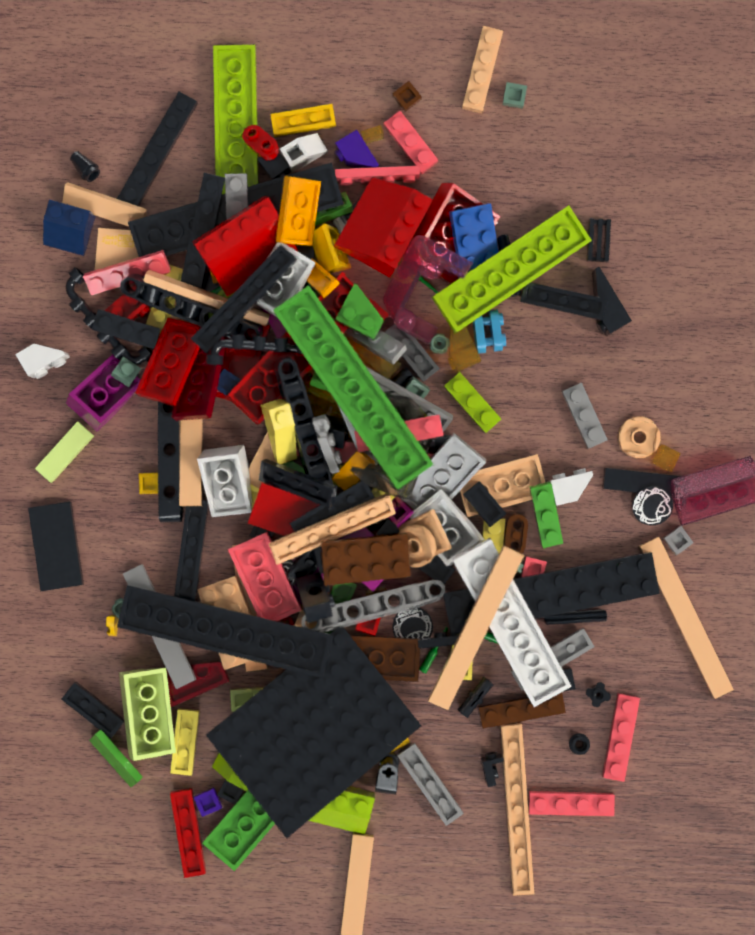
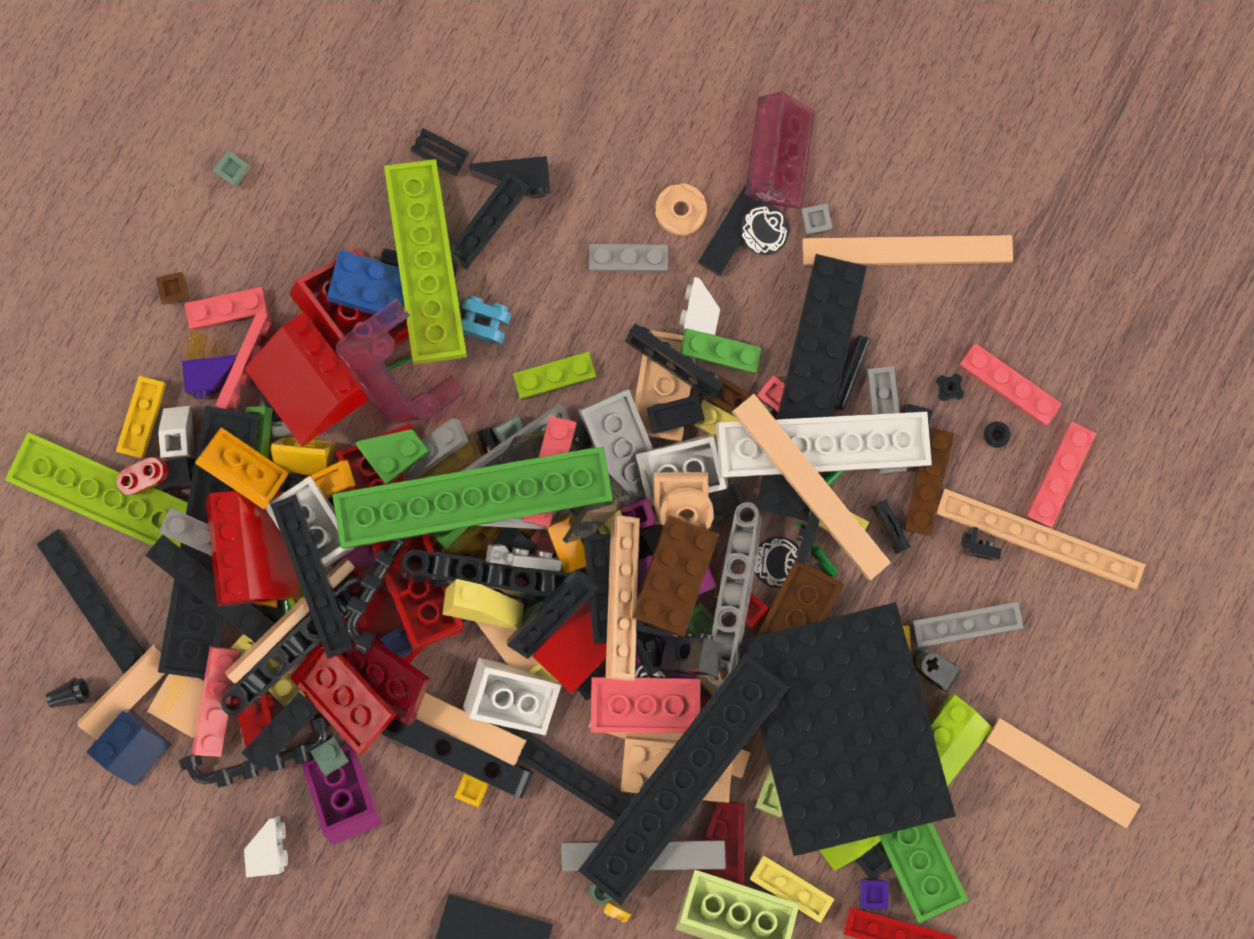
camera: 65 degrees left, 5 degrees down
(64, 452) = (388, 874): yellowish green tile -> none
(415, 354) = (470, 414): dark grey plate -> none
(444, 343) = (477, 381): sand green plate -> none
(462, 351) = (489, 359): clear yellow slope -> none
(482, 69) = (184, 191): light nougat plate -> none
(521, 489) = (674, 362): none -> black plate
(666, 458) = (718, 190): clear yellow tile -> none

